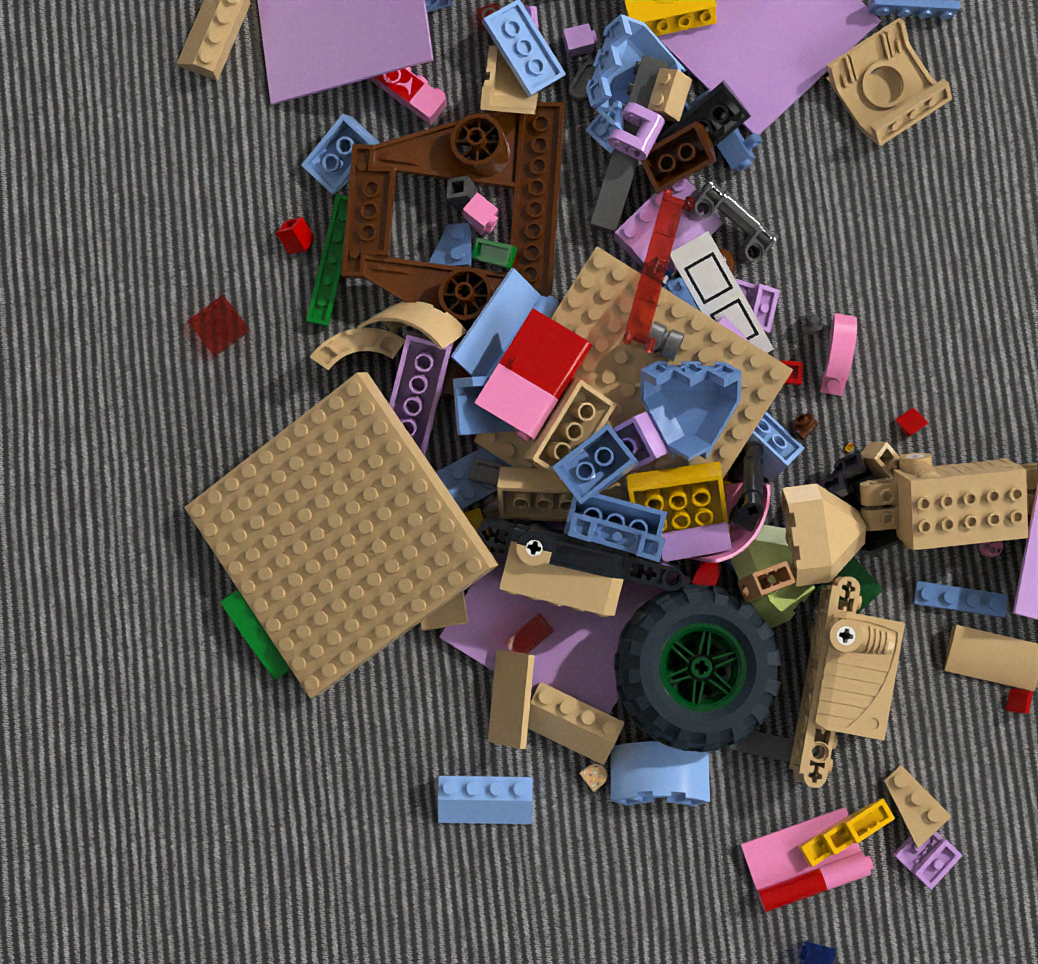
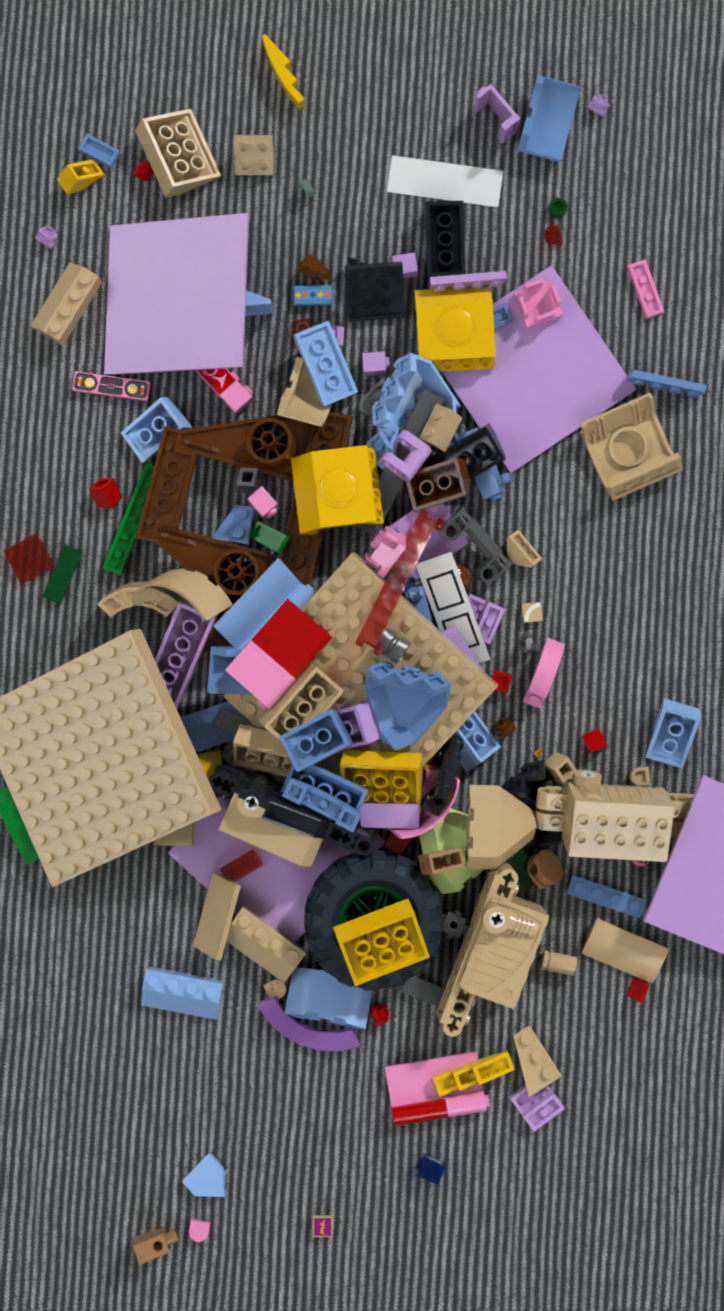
camera: 15 degrees right, 5 degrees up
(260, 337) = (62, 574): none -> dark green tile
(281, 115) = (111, 386): none -> tile
(562, 182) = (336, 488): none -> yellow panel
(633, 240) = (388, 548): none -> bright pink panel
(638, 822) = (303, 1034): none -> medium lavender tile
(715, 686) = (381, 942): none -> yellow slope
(722, 783) = (379, 1014): none -> red plate
(785, 222) = (521, 551): none -> tan slope
(792, 670) = (459, 918): none -> flat silver brick
(811, 289) = (532, 612): none -> tan tile
(884, 577) = (544, 868): none -> medium nougat head
(921, 685) = (558, 963): none -> tan piece
(972, 453) = (640, 776): none -> tan tile
(1001, 397) = (673, 733): none -> light blue slope

